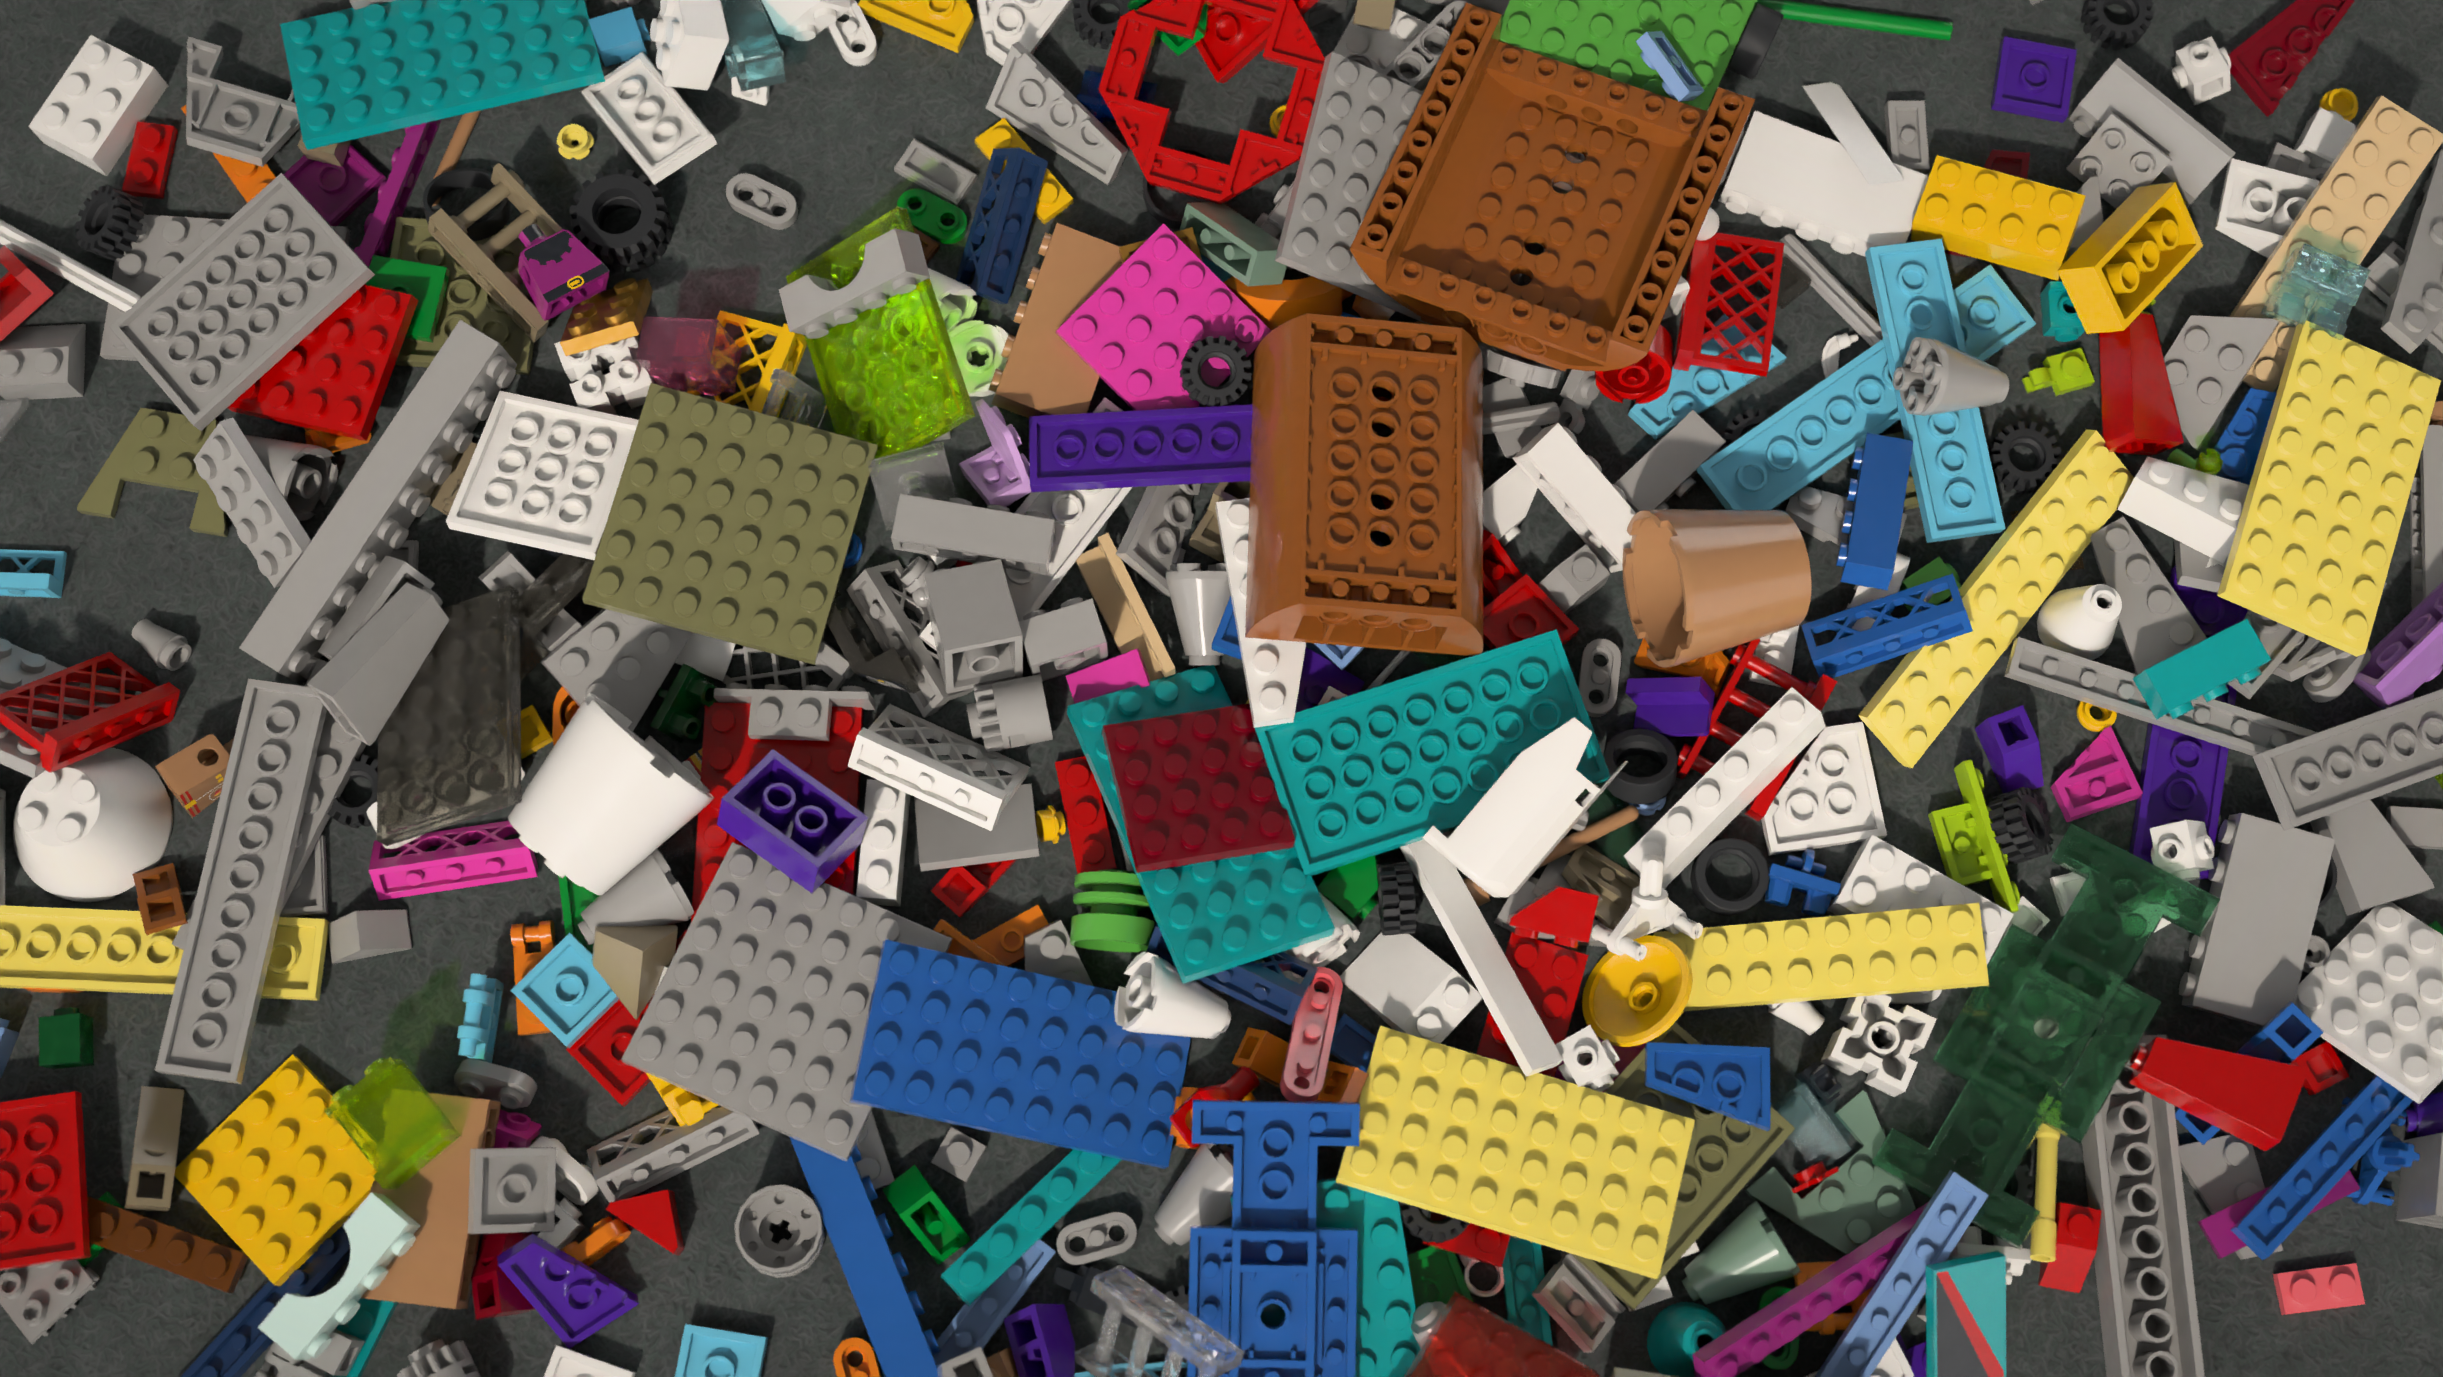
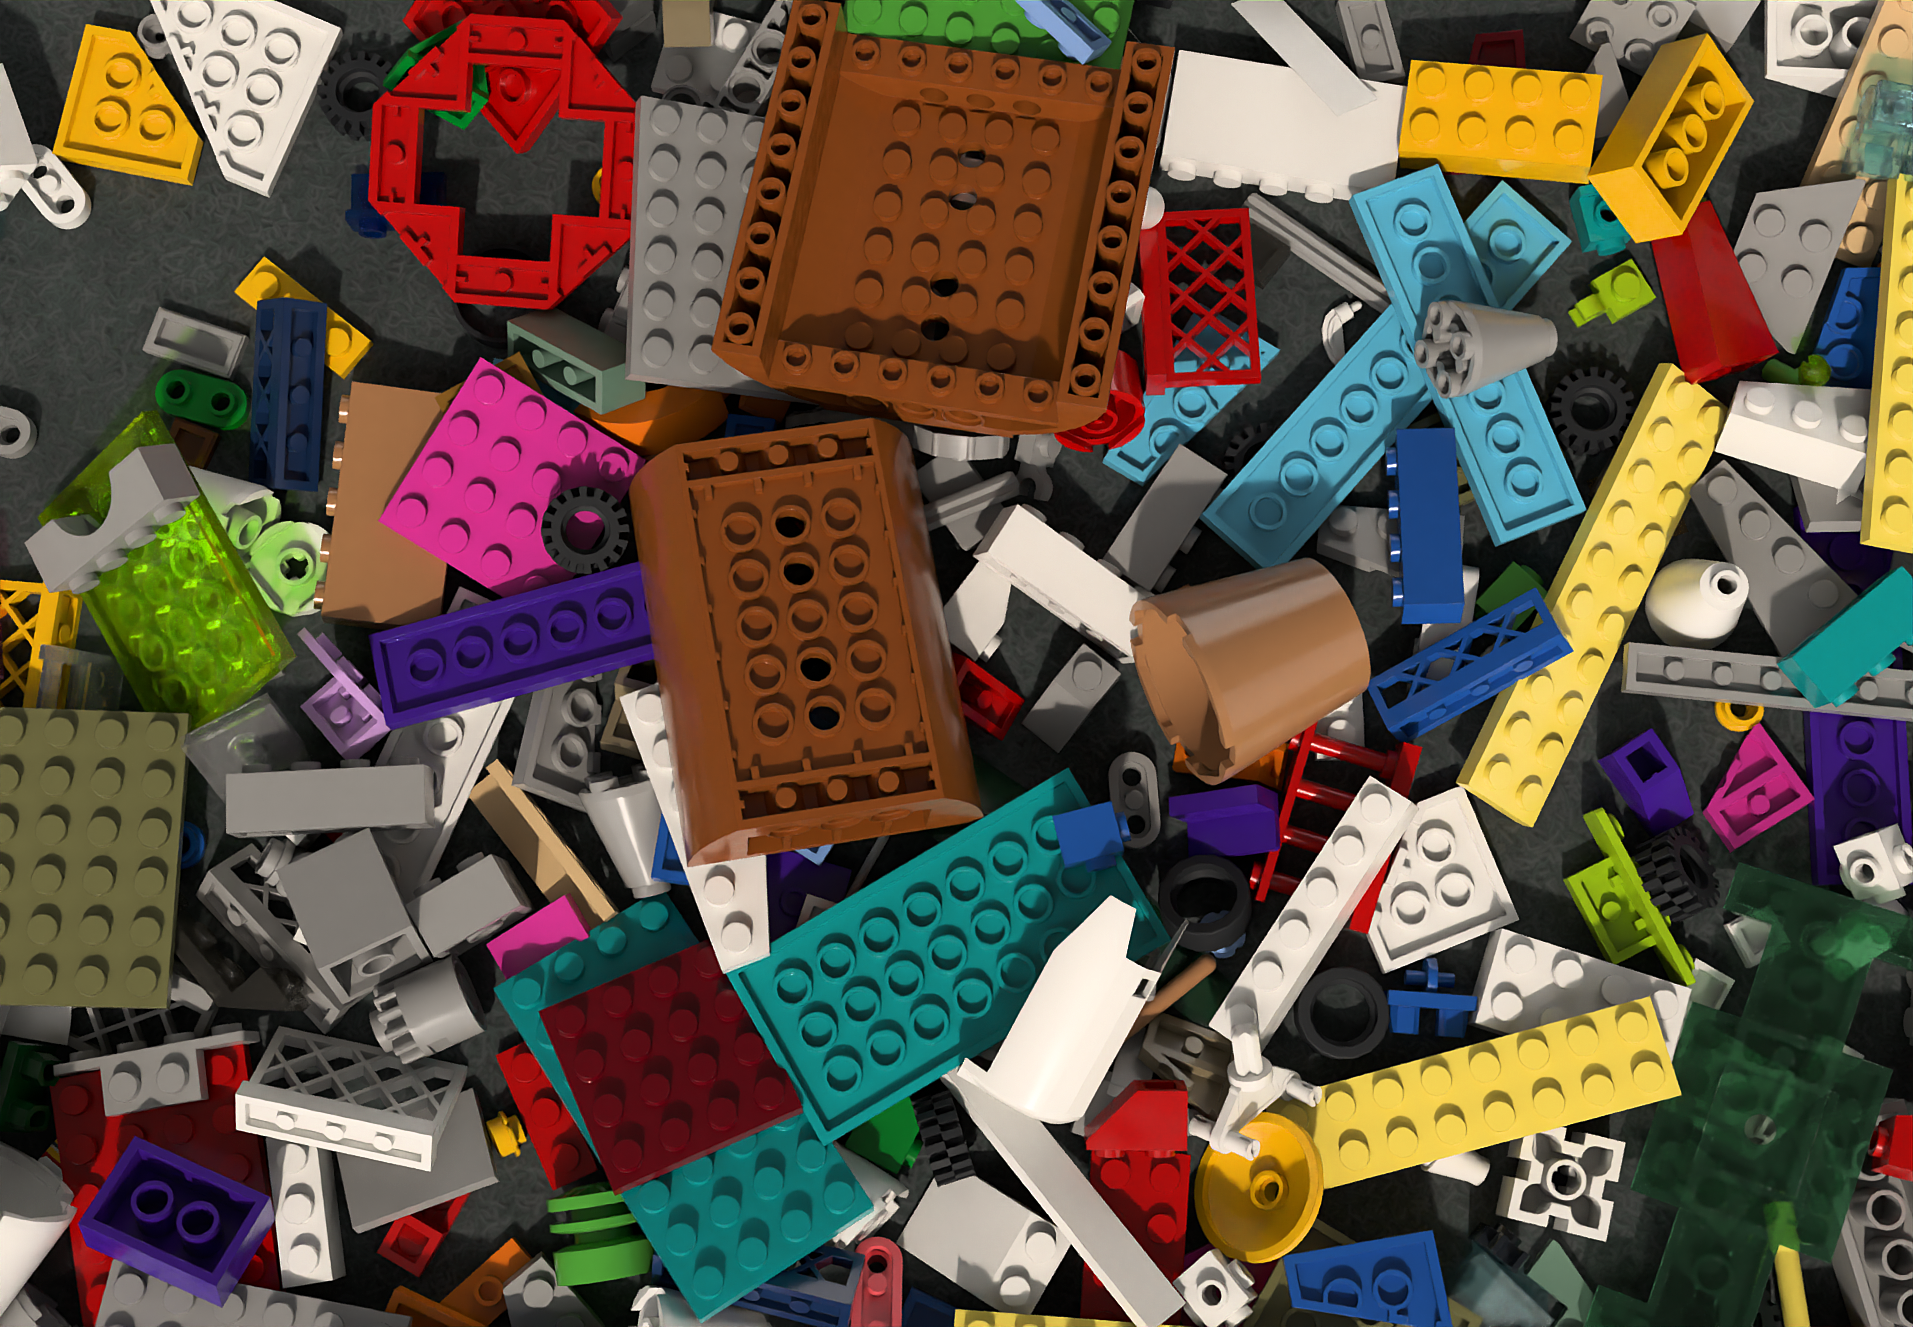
camera: 10 degrees left, 5 degrees up
(1050, 114) = (320, 241): light grey wing -> none
(1522, 614) = (1027, 751): red plate -> none
(1564, 681) = (1091, 836): none -> blue brick

